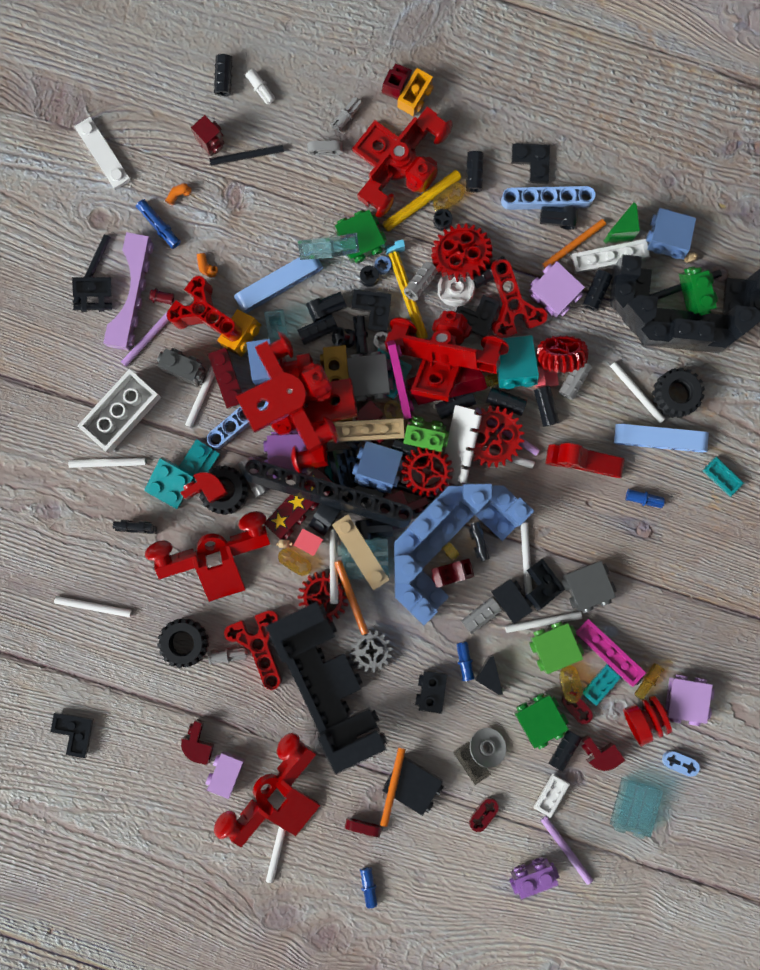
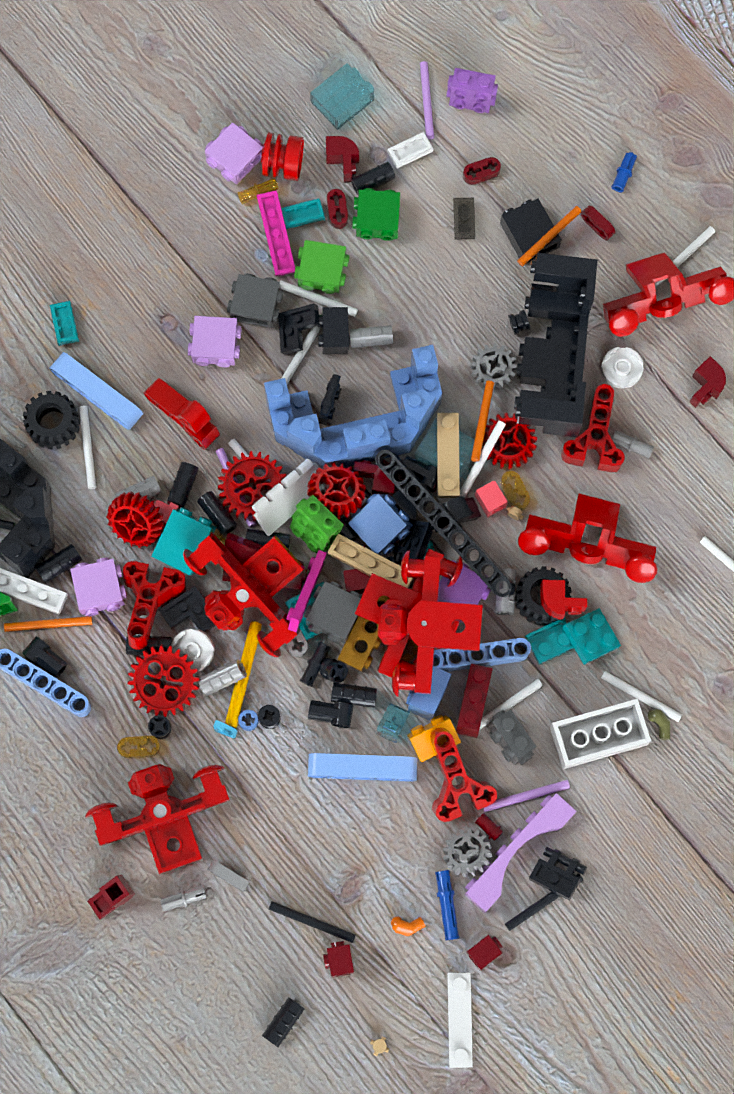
camera: 150 degrees left, 10 degrees down
(79, 452) = (663, 721): none -> olive arm
(111, 207) = (485, 952): none -> dark red brick
(134, 527) = (657, 618): black plate -> none
(147, 102) = (379, 1046): none -> tan piece
(166, 643) = (674, 463): black tyre -> none
(168, 274) = (470, 855): none -> light grey gear
(204, 267) = (426, 829): orange arm -> none
(225, 774) = (697, 339): lavender brick -> none
(260, 86) = (252, 985): white axle -> none
(272, 716) = (622, 367): none -> white tile
(293, 511) = (489, 534): dark red brick -> none
(328, 246) = (292, 760): clear light blue brick -> none
(369, 237) = (251, 759): green brick -> none
(374, 700) = (519, 322): none -> black wheel
(377, 304) = (279, 682): black plate -> none
(388, 415) = (328, 564): clear yellow beam -> none
(415, 91) = (96, 874): light orange brick -> none
(421, 200) = (170, 760): yellow axle -> none
(432, 691) = (460, 298): black brick -> none
(450, 551) = (362, 406): clear yellow beam -> none
(452, 573) = (373, 389): dark red brick -> none
(465, 661) = (413, 306): blue axle -> none
(474, 171) = (96, 755): black axle -> none
(489, 676) = (399, 281): black slope -> none
(495, 747) = (436, 215): light grey dish -> none
(537, 157) = (24, 731): black plate -> none
(575, 683) = (325, 227): clear yellow beam -> none
(598, 533) = (214, 341): none -> lavender brick
(644, 498) = (149, 348): blue axle -> none
(682, 759) = (280, 107): light blue beam -> none

